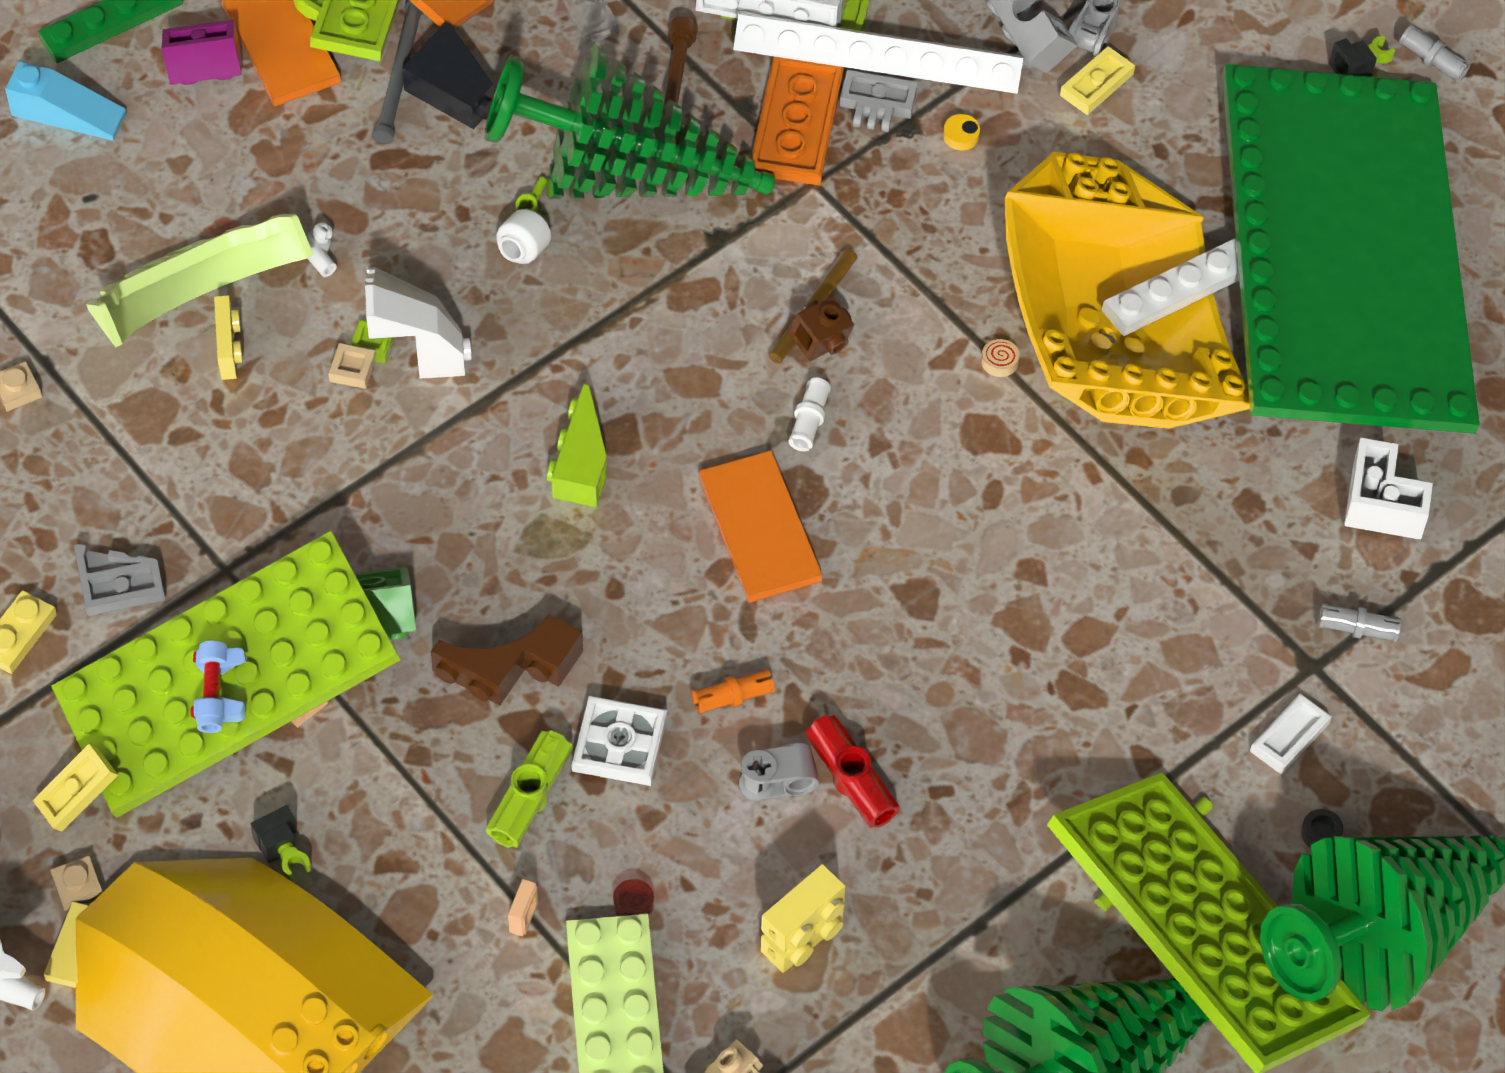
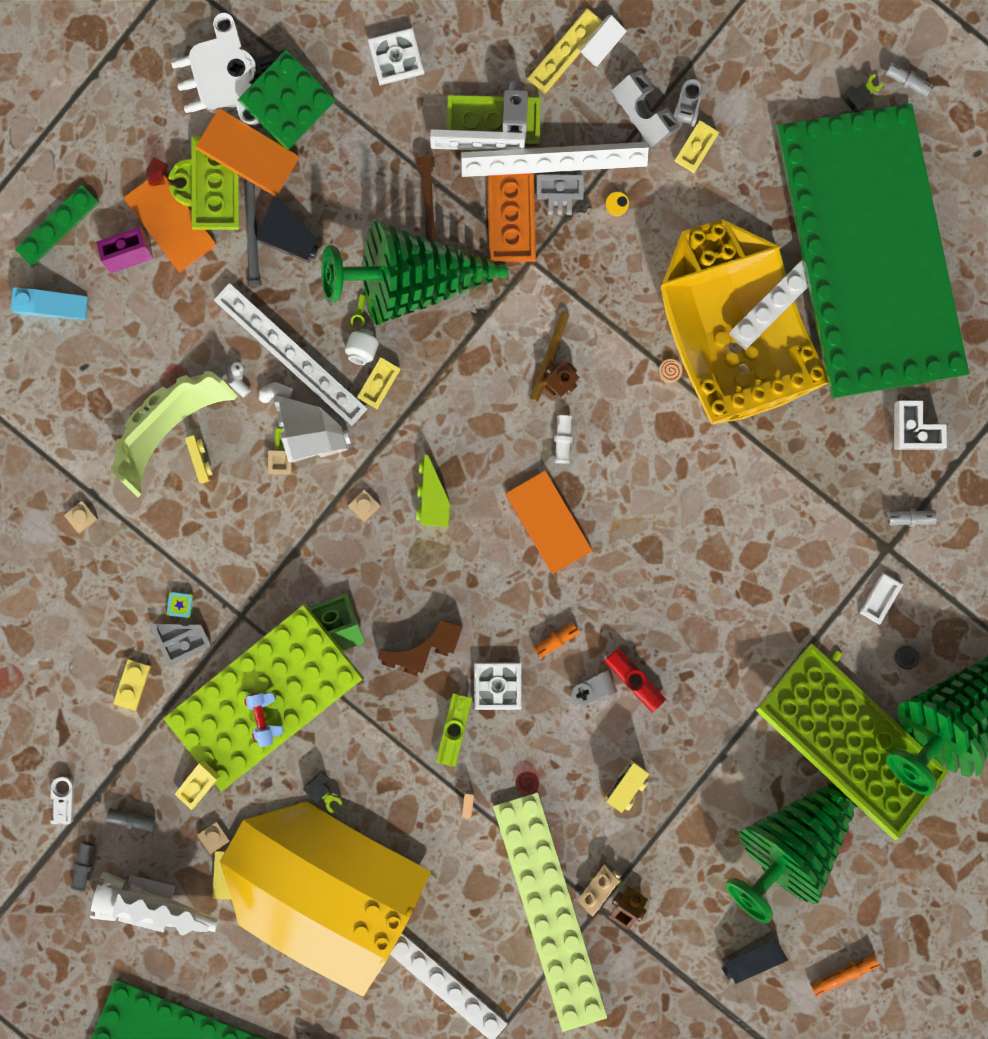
camera: 10 degrees left, 30 degrees up
(132, 532) = (180, 604): none -> tile
(358, 272) = (274, 389): none -> white arm
(413, 232) = (290, 354): none -> white plate
(469, 451) = (364, 506): none -> tan plate
(537, 290) = (379, 383): none -> light yellow plate

